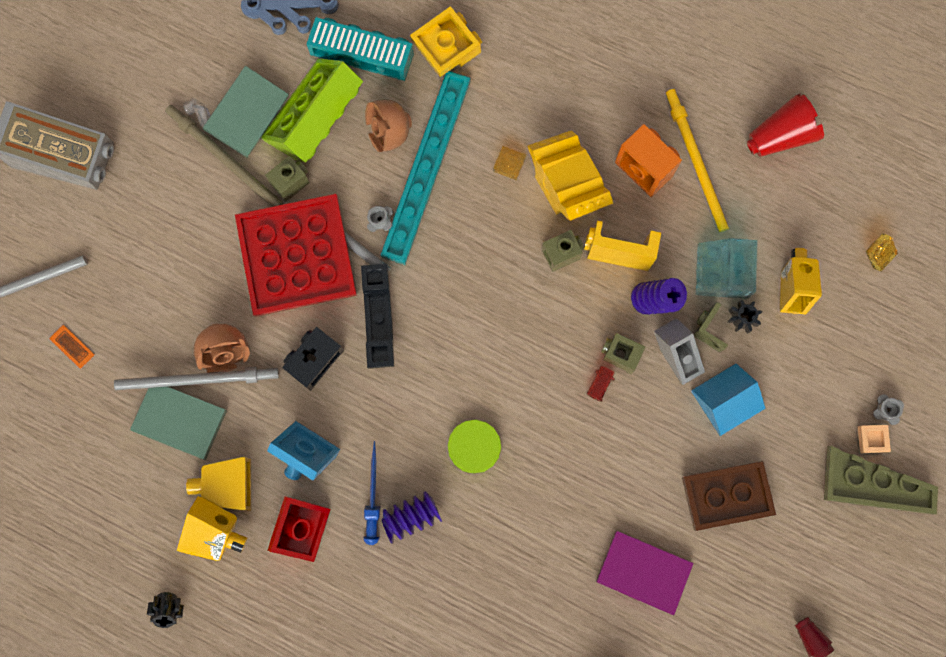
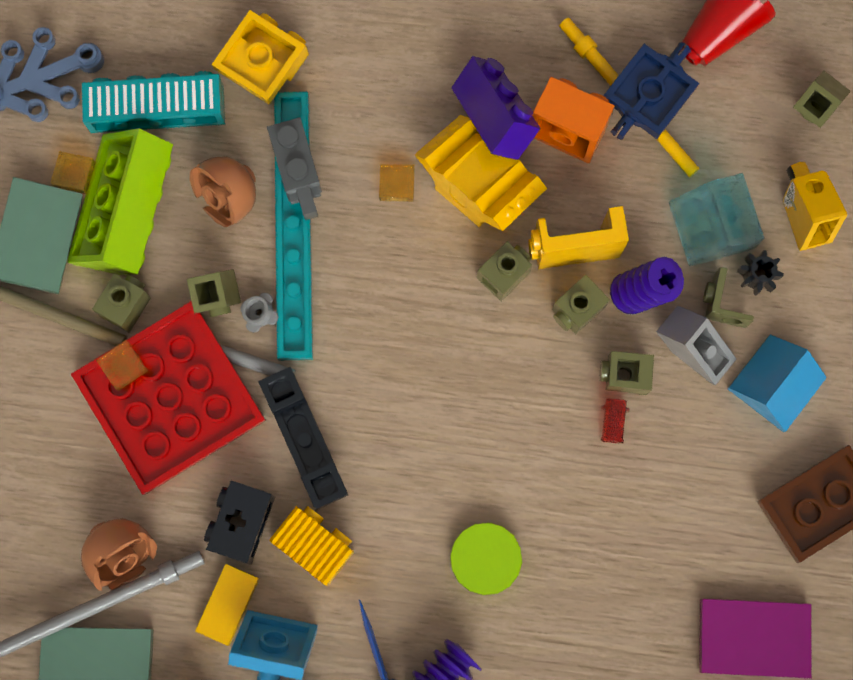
camera: 20 degrees left, 0 degrees up
(271, 220) = (122, 365): none -> clear yellow plate
(283, 412) = (227, 605): none -> yellow tile
(287, 77) = (73, 172): none -> clear yellow plate
(353, 193) = (214, 292): none -> olive brick
(356, 392) = (312, 545): none -> yellow brick
(442, 124) = (296, 165): none -> dark grey hinge
(597, 133) = (495, 107): none -> dark purple brick
(606, 293) = (579, 305): none -> olive brick
(713, 160) = (651, 91): none -> dark blue plate
(835, 209) = (821, 99): none -> olive brick

